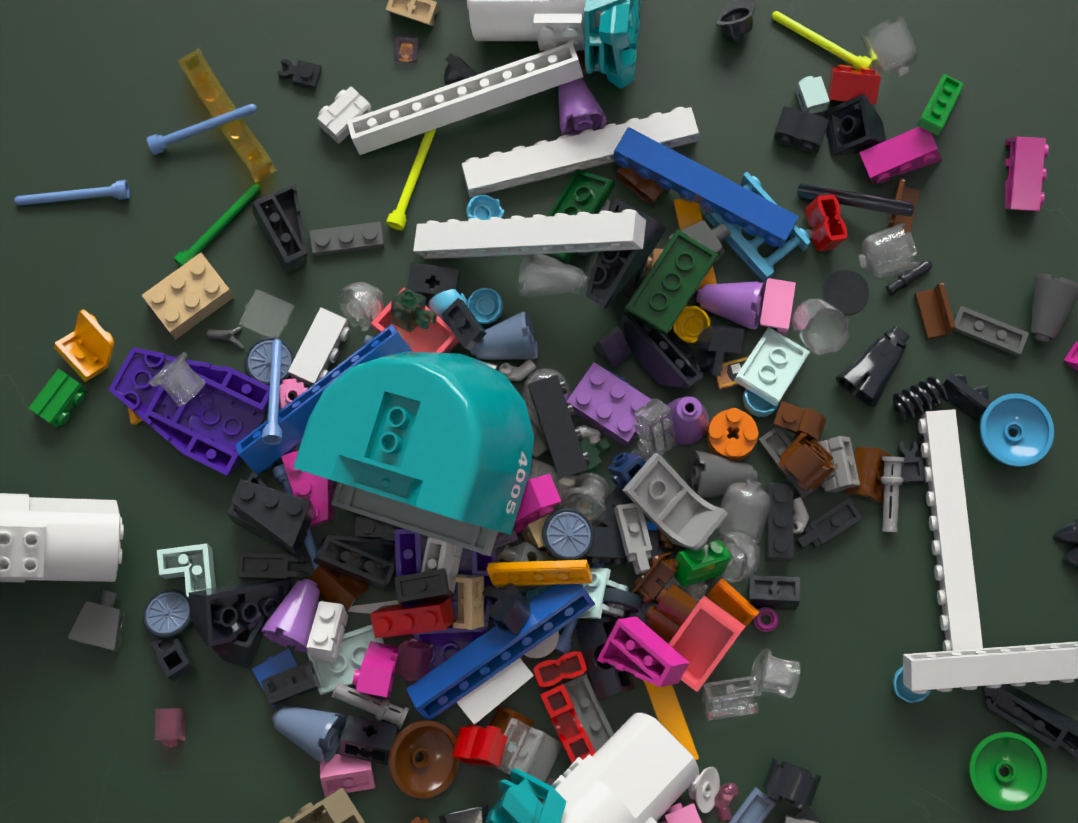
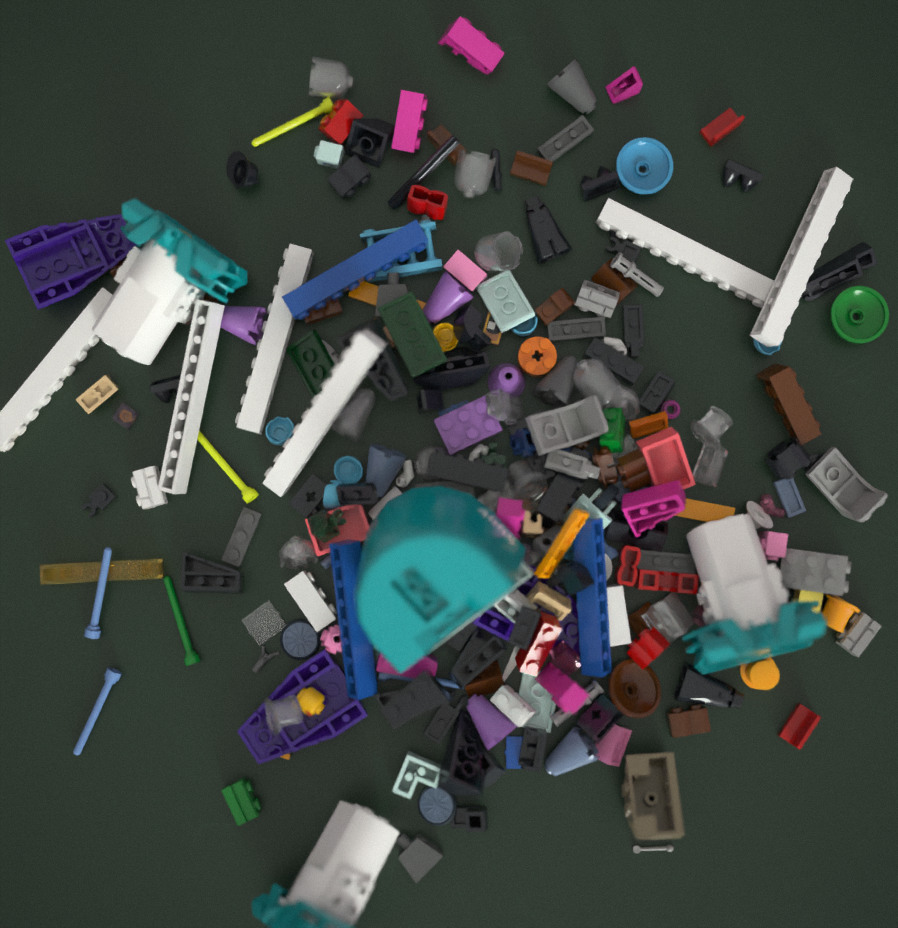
camera: 55 degrees left, 10 degrees up
(87, 348) = (216, 762): light orange bracket -> none
(170, 726) = (514, 844): clear pink brick -> none
(188, 296) = (220, 671): tan brick -> none
(208, 406) = (311, 701): none -> yellow head
(272, 432) = (358, 669): medium blue piece -> none
(567, 534) = (546, 509): sand blue wheel -> none
(807, 462) = (588, 318): reddish brown brick -> none
(846, 291) = (480, 218): black sticker -> none
(856, 751) = (790, 402): none -> reddish brown wedge
(917, 397) = (583, 215): black piece -> none
(940, 104) = (391, 71): green tile -> none

